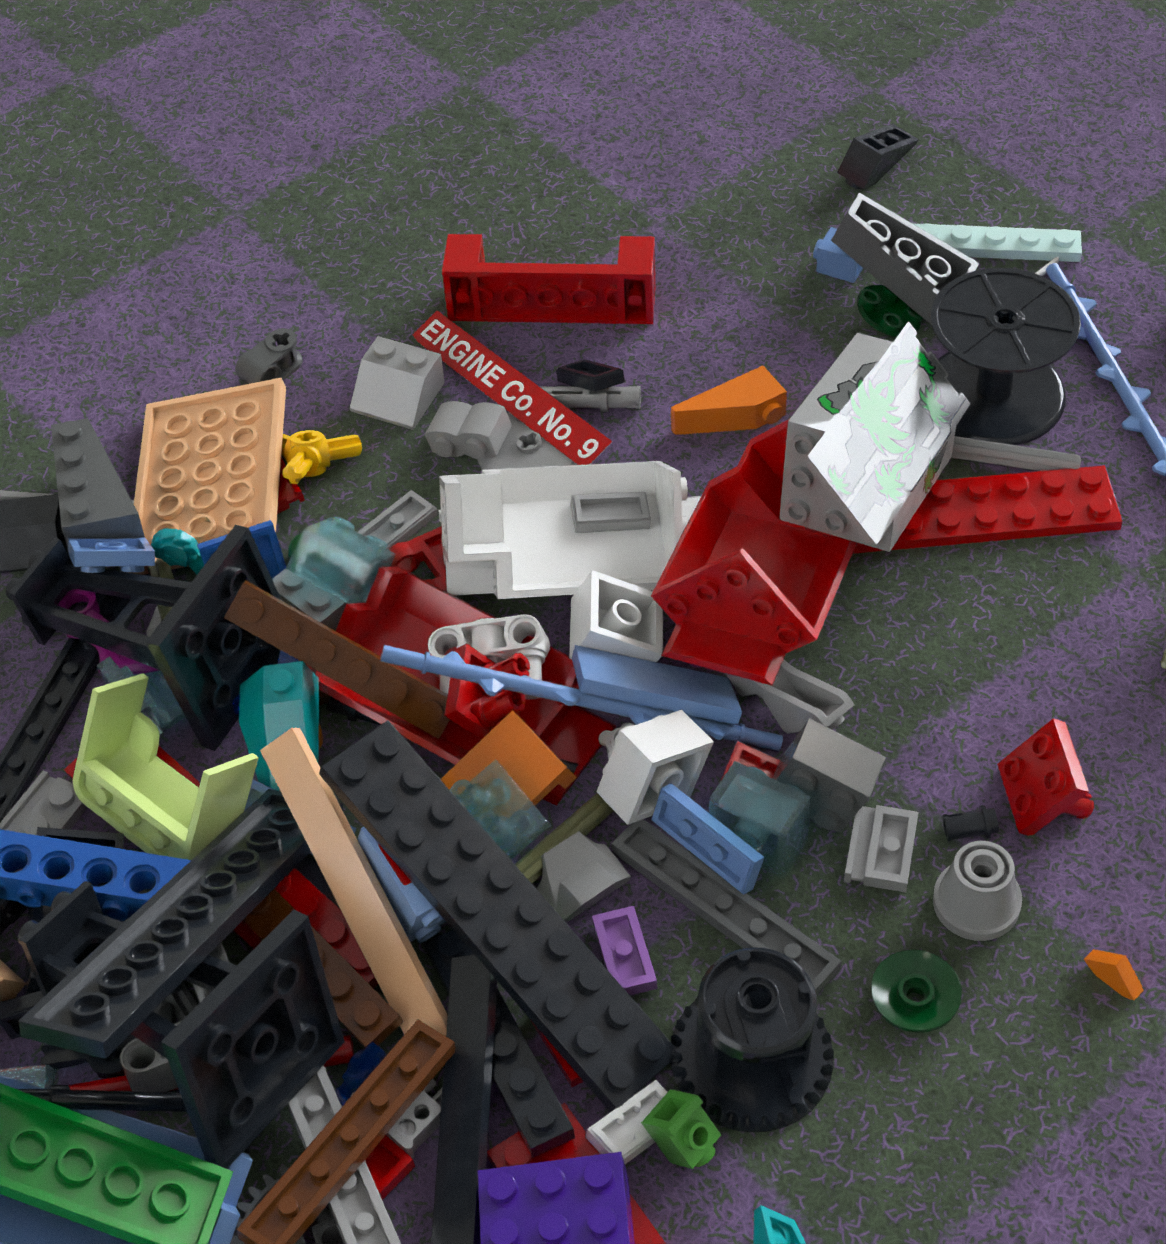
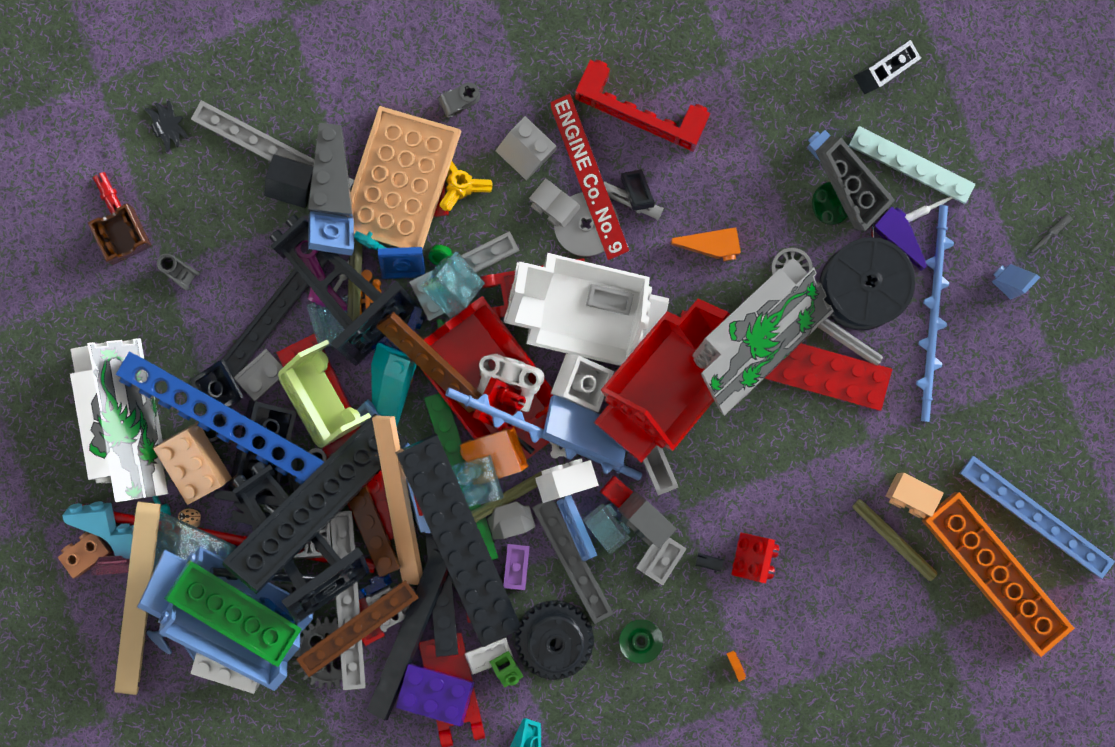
camera: 15 degrees right, 35 degrees up
(978, 892) = (685, 595): light grey piece -> none

